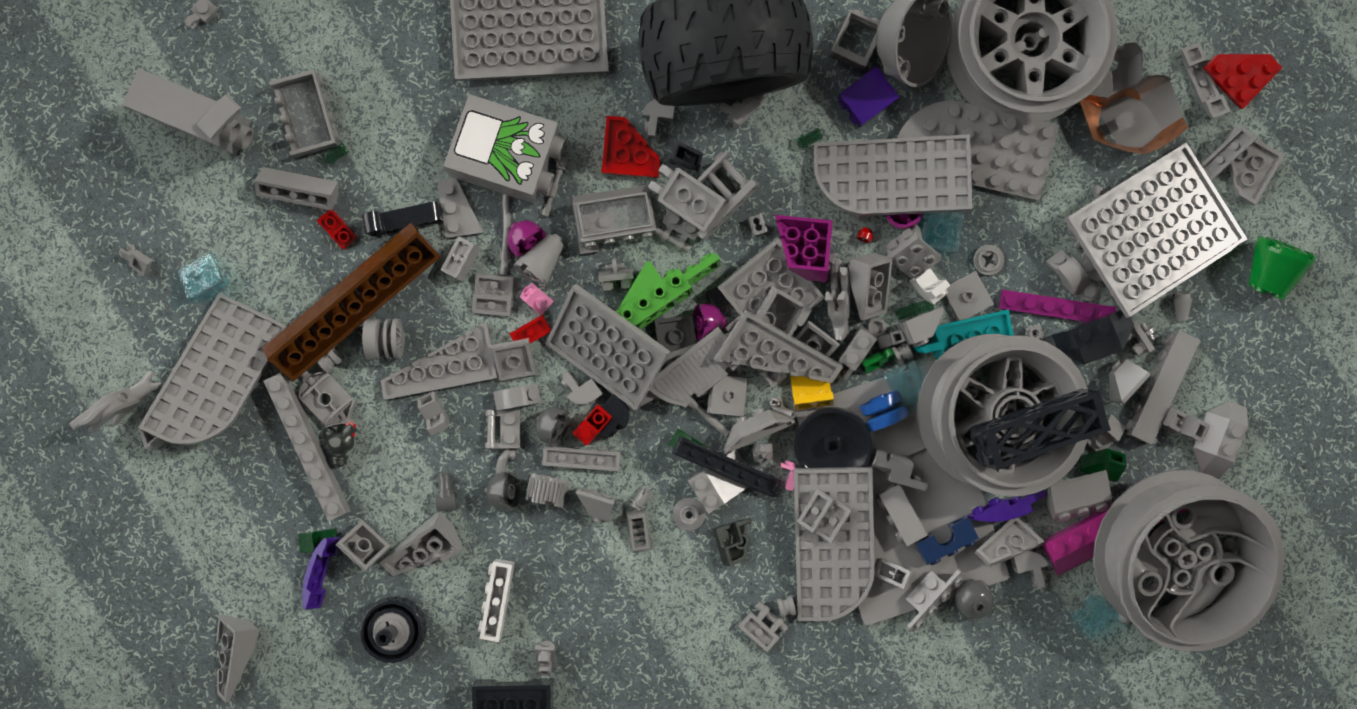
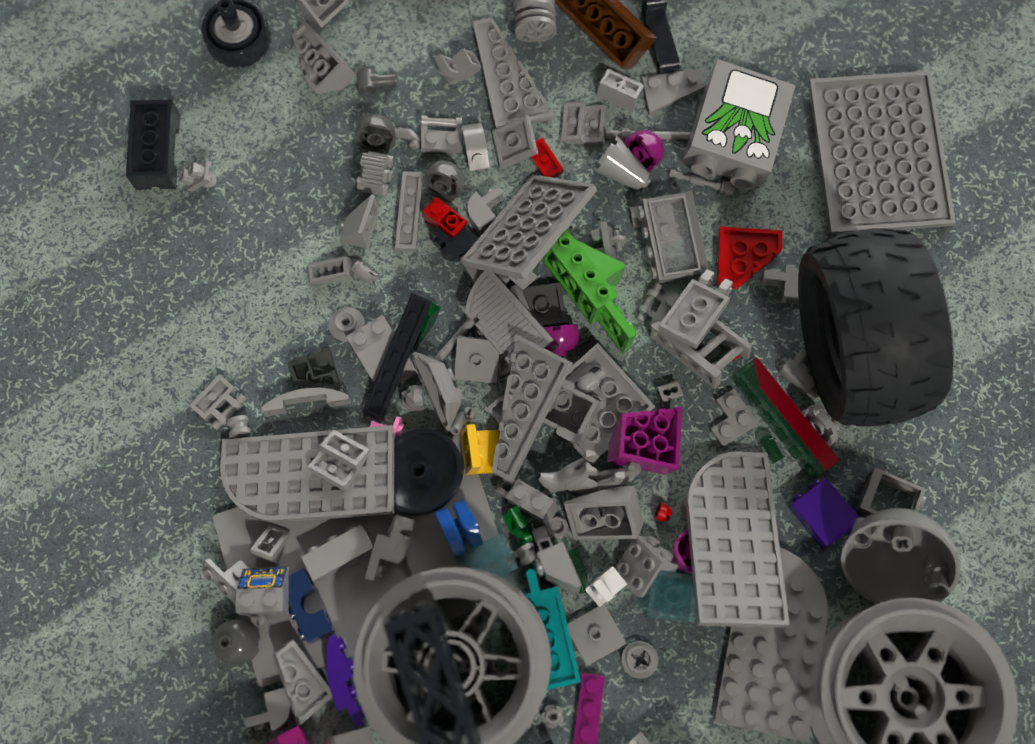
camera: 90 degrees right, 15 degrees down
(497, 600) = (261, 128): white brick -> none
(536, 298) = (580, 164): bright pink bracket -> none
(685, 156) = (743, 312): black slope -> none
(754, 294) = (590, 381): none -> light grey cylinder
(761, 524) = (278, 404): none -> light grey slope
(783, 124) = (785, 418): none -> brick
(783, 165) = (738, 419): none -> light grey plate
(792, 95) = (826, 427): none -> light grey plate
(817, 339) = (540, 455): light grey slope -> none
(938, 577) = (263, 591): none -> light grey slope

